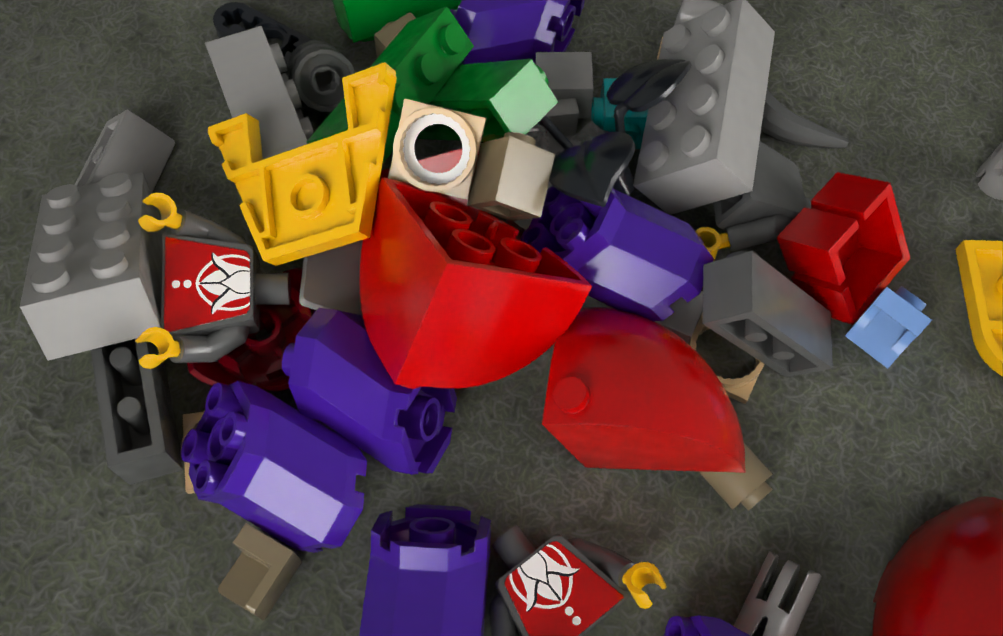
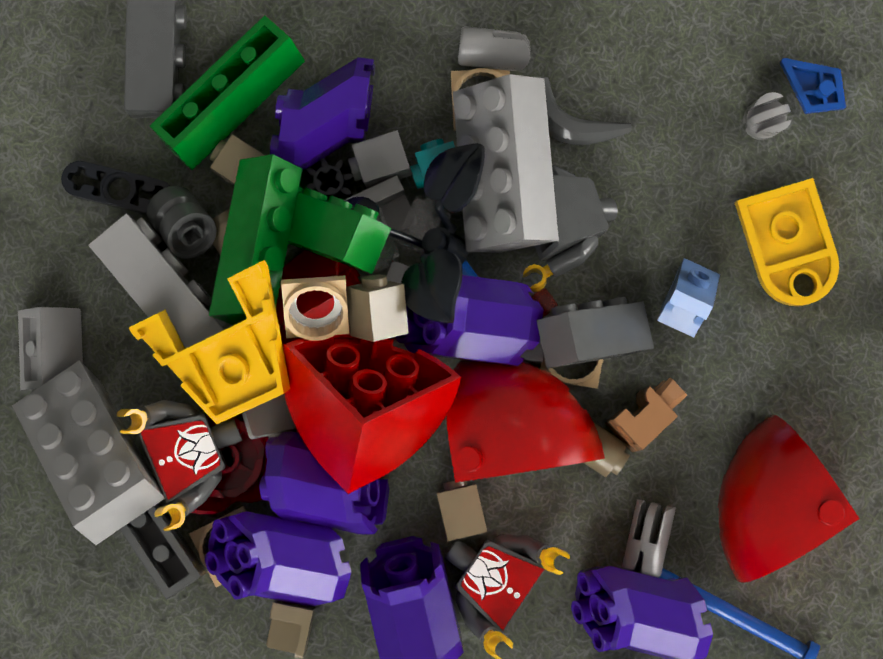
camera: 15 degrees left, 20 degrees up
(534, 490) = (461, 510): none -> dark tan brick
(804, 446) = (650, 418): none -> medium nougat hips
(846, 245) = (641, 250): red piece -> none

